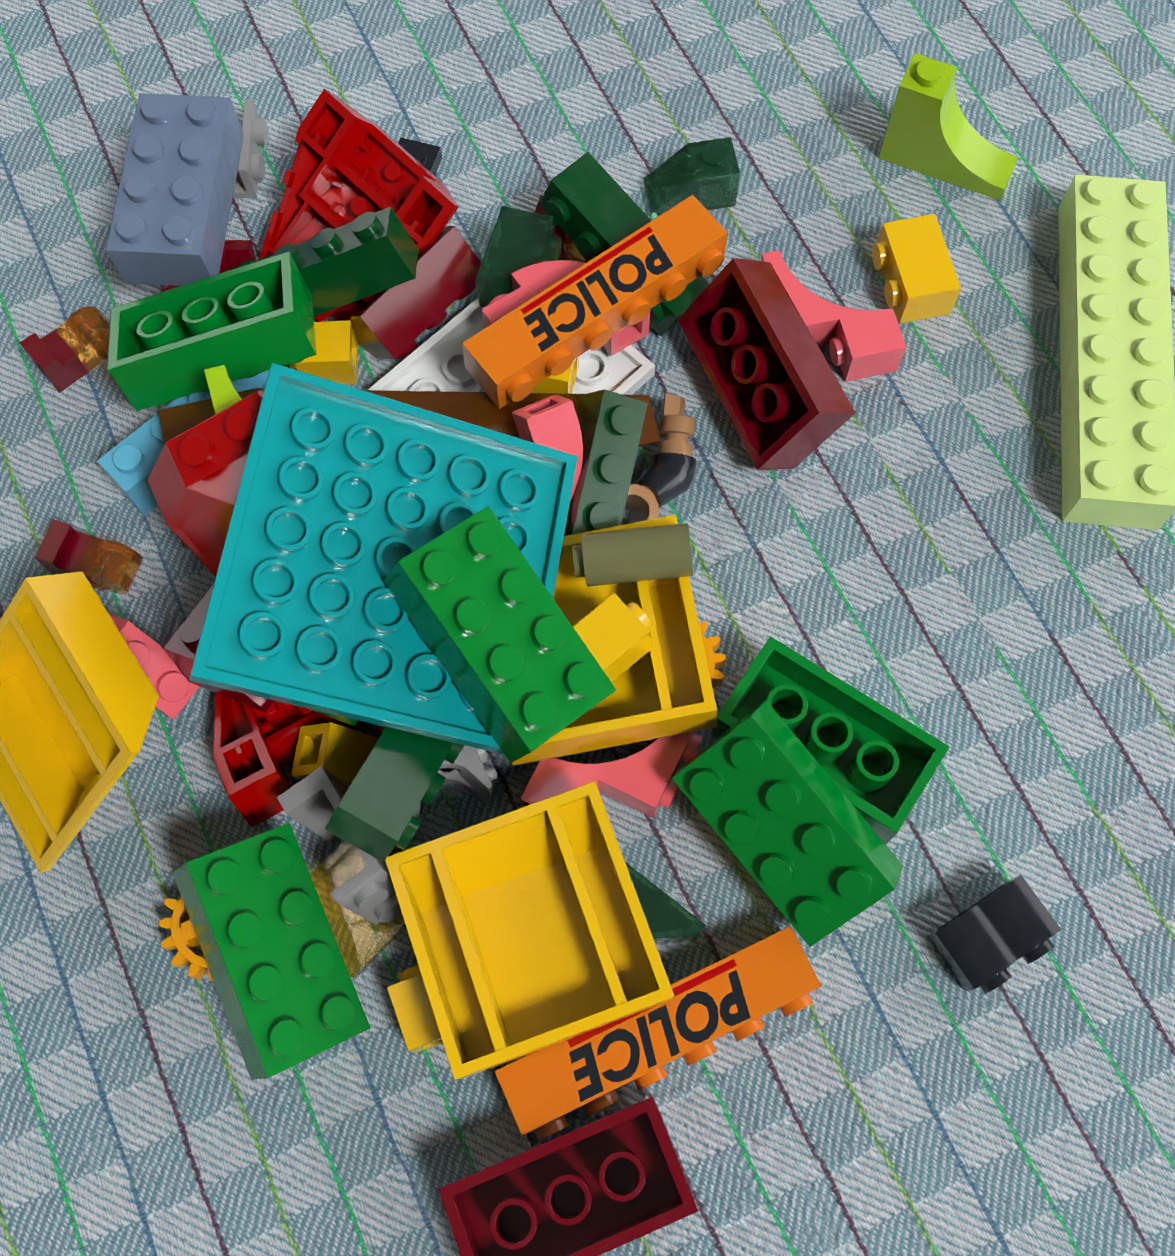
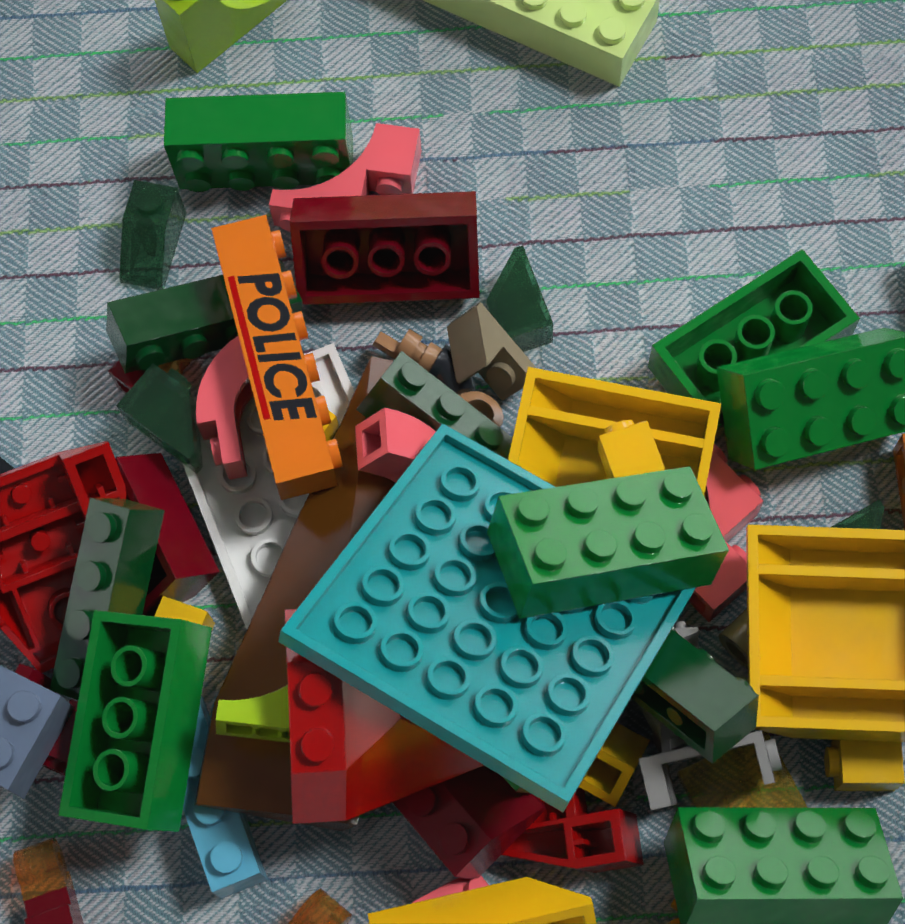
camera: 65 degrees left, 0 degrees up
(634, 555) = (561, 410): olive brick -> none
(705, 487) = (485, 348): none -> dark tan slope
(765, 508) = (519, 304): none -> clear green slope
(823, 217) = (257, 140): none -> green brick
(916, 268) = (358, 77): yellow brick -> none

